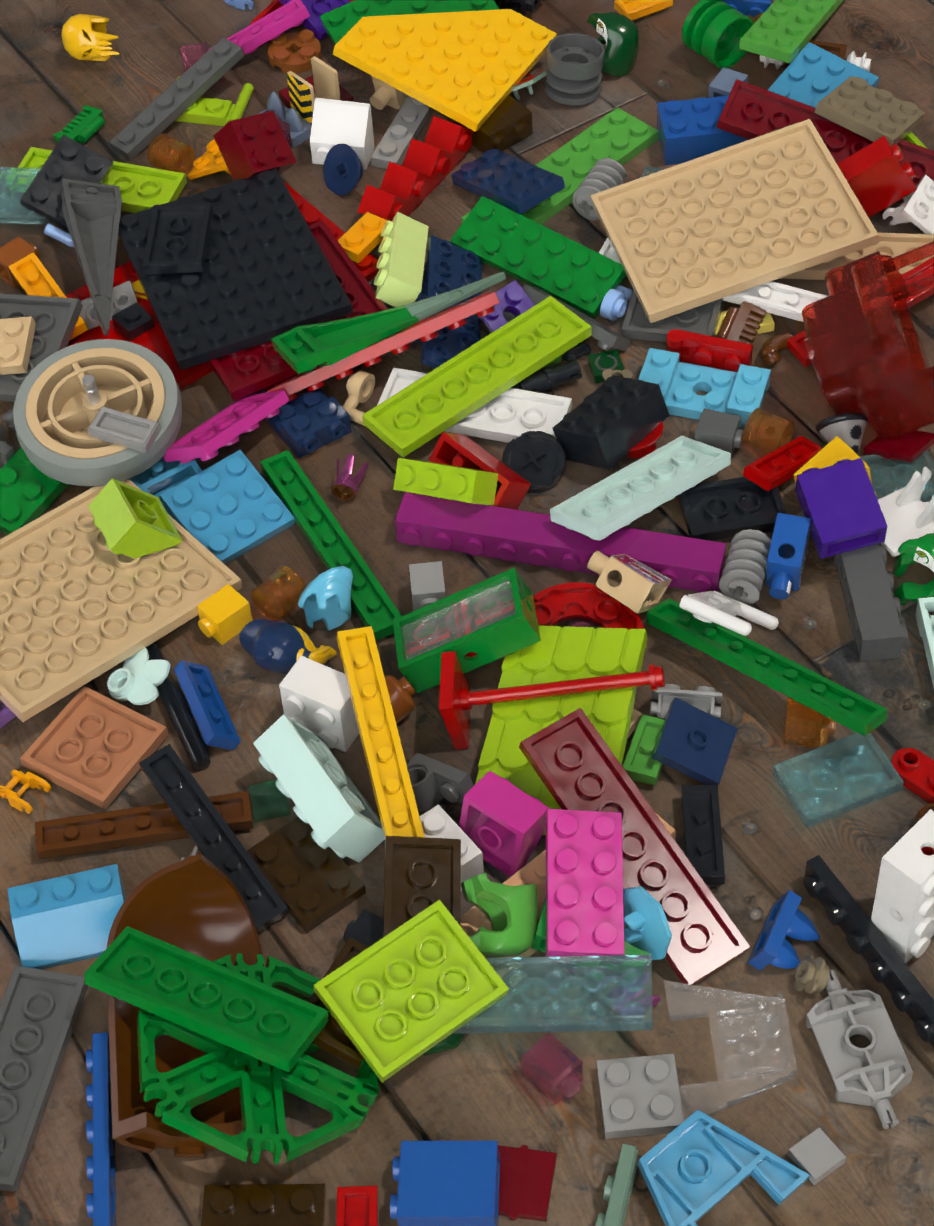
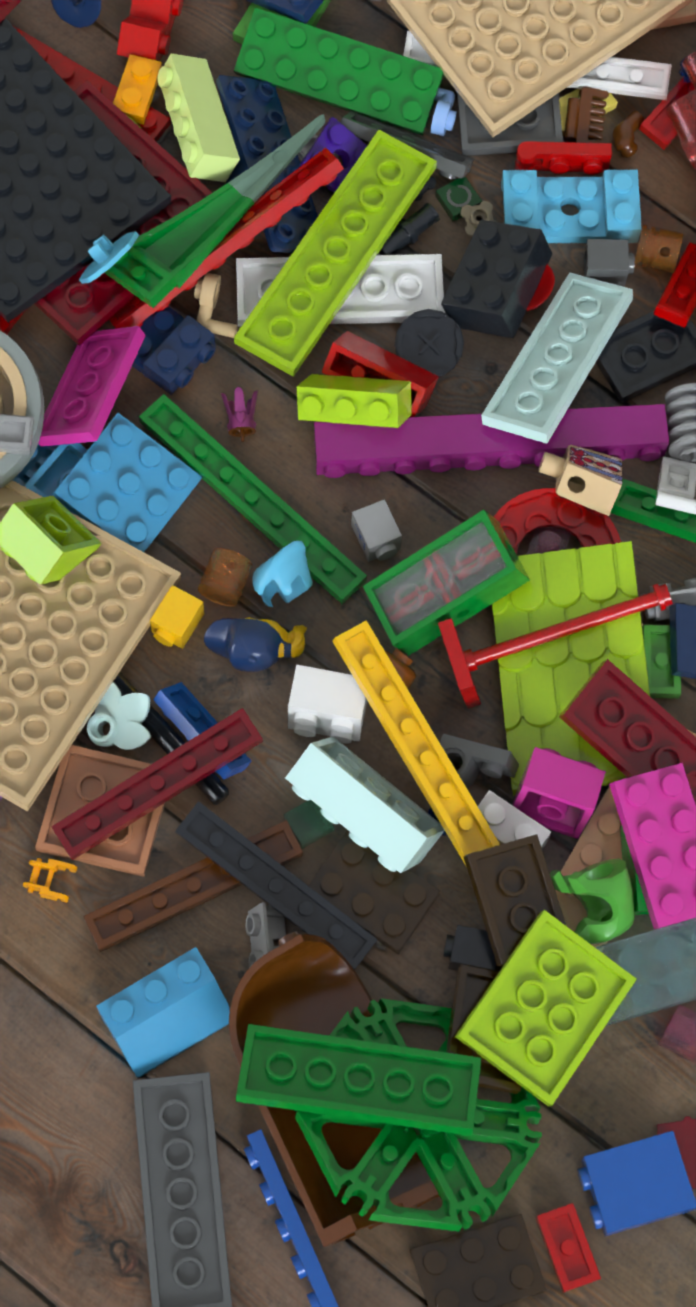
camera: 25 degrees left, 20 degrees up
(142, 727) = (157, 784): none -> dark red plate
(273, 327) = (106, 255): none -> medium azure piece

